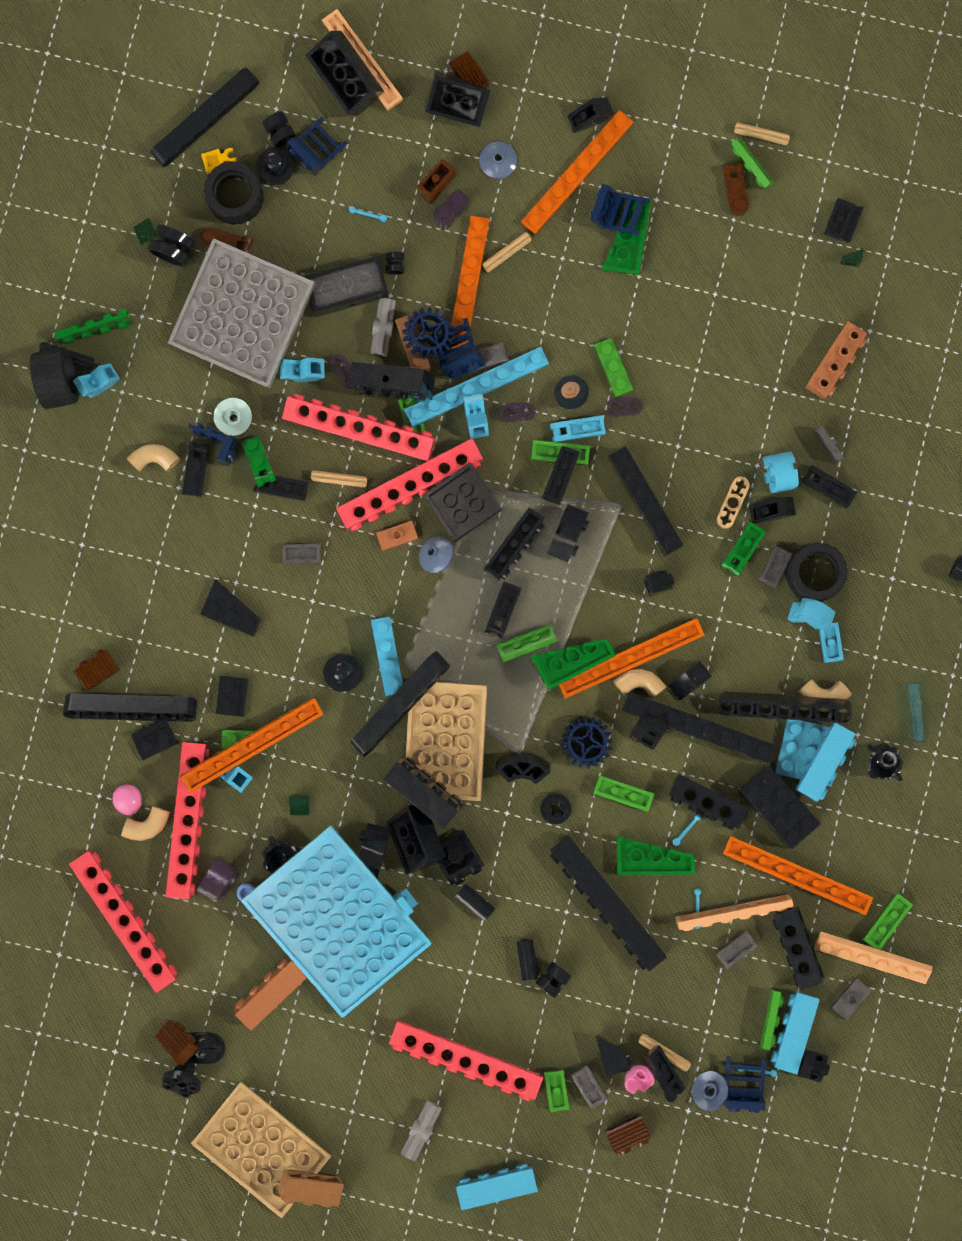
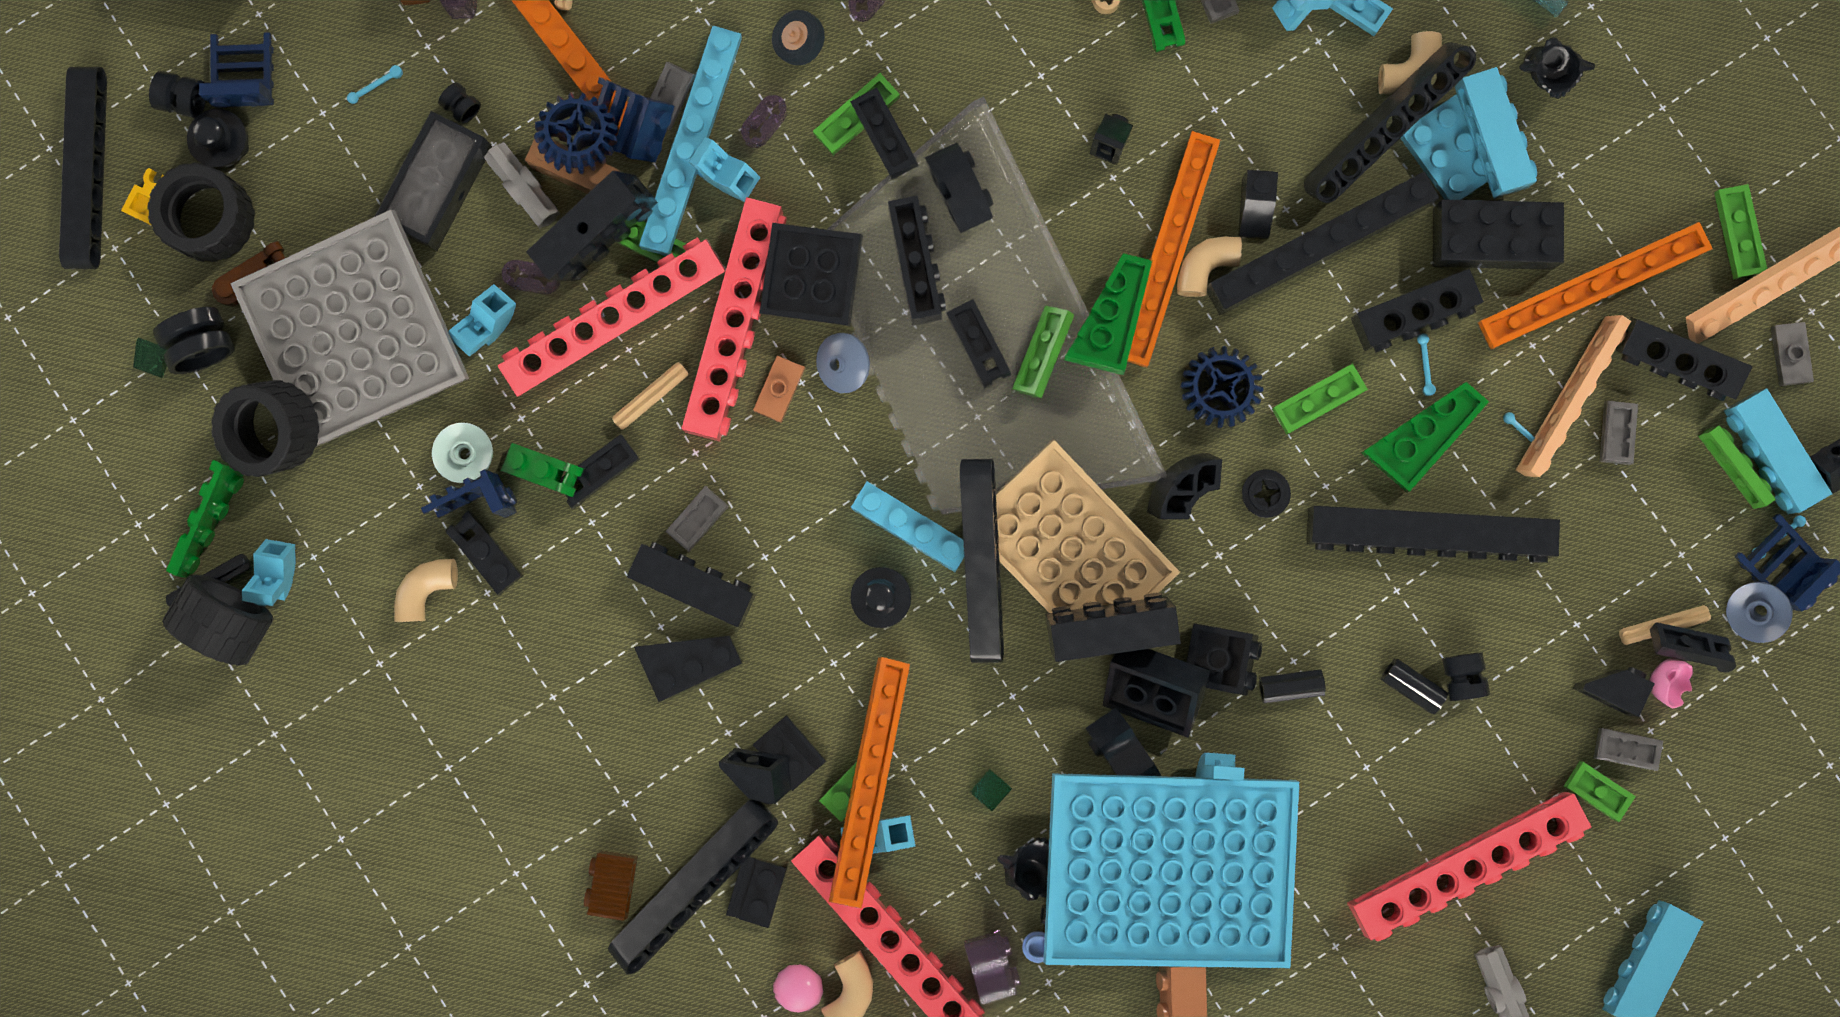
camera: 40 degrees left, 0 degrees up
(144, 308) = (235, 431): none -> black tyre
(208, 690) = (758, 774): none -> black slope
(268, 580) = (691, 585): none -> black brick
(578, 429) = (848, 68): medium azure plate -> none
(628, 1134) = (1726, 754): reddish brown brick -> none
(645, 501) = (1002, 67): black brick -> none
(648, 731) = (1275, 303): black plate -> none

